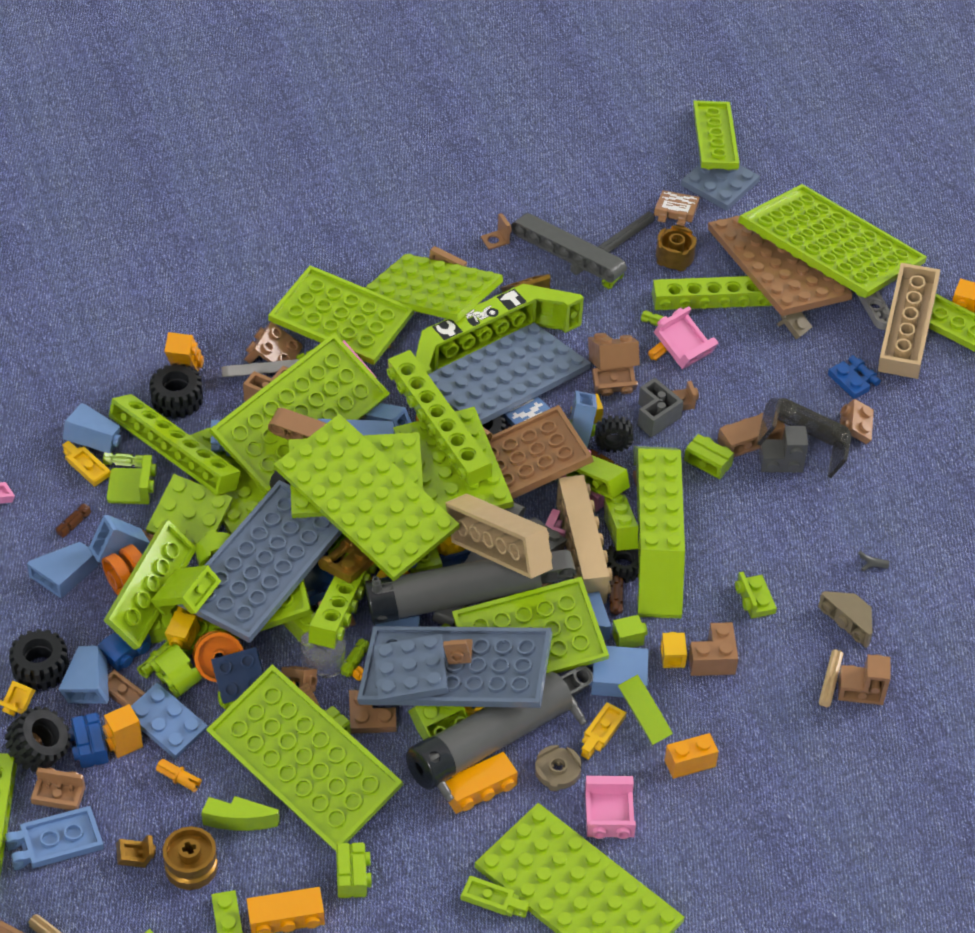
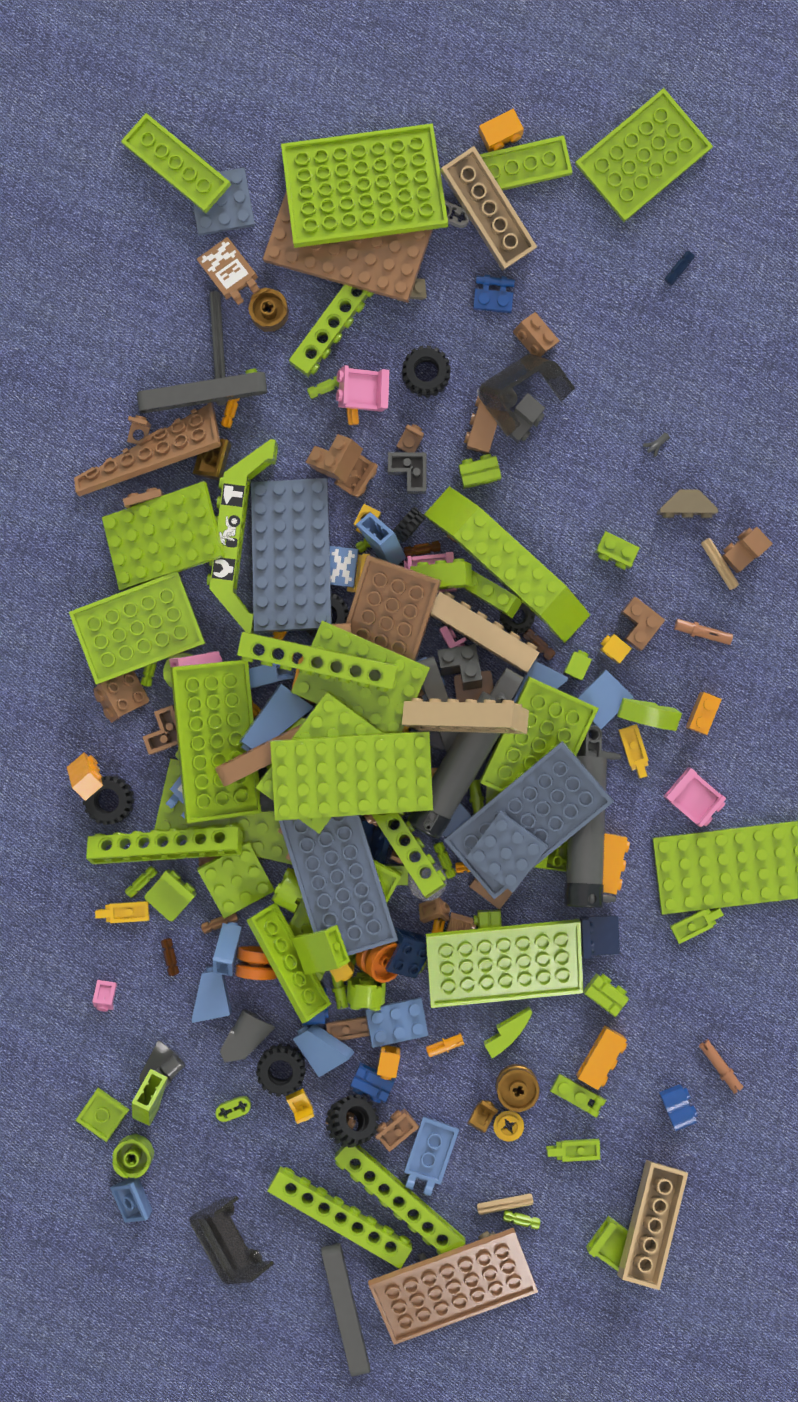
camera: 50 degrees left, 40 degrees up
(43, 614) = (245, 1036): none -> dark grey panel
(91, 429) = (99, 889): medium blue slope -> none
(140, 876) = (517, 1127): none -> yellow gear
(262, 368) = (136, 722): light grey beam -> none
(348, 568) = (388, 824): pearl gold plate -> none
(401, 822) = (599, 935): none -> dark blue bracket
(458, 651) = (527, 819): medium nougat bracket -> none
(501, 252) = (161, 448): none -> medium nougat wing
(554, 778) = (646, 795): dark tan plate -> none
(574, 278) = (229, 413): none -> light orange axle
(745, 368) = (422, 355): none -> black tyre
(756, 700) = (695, 629): none -> nougat pin

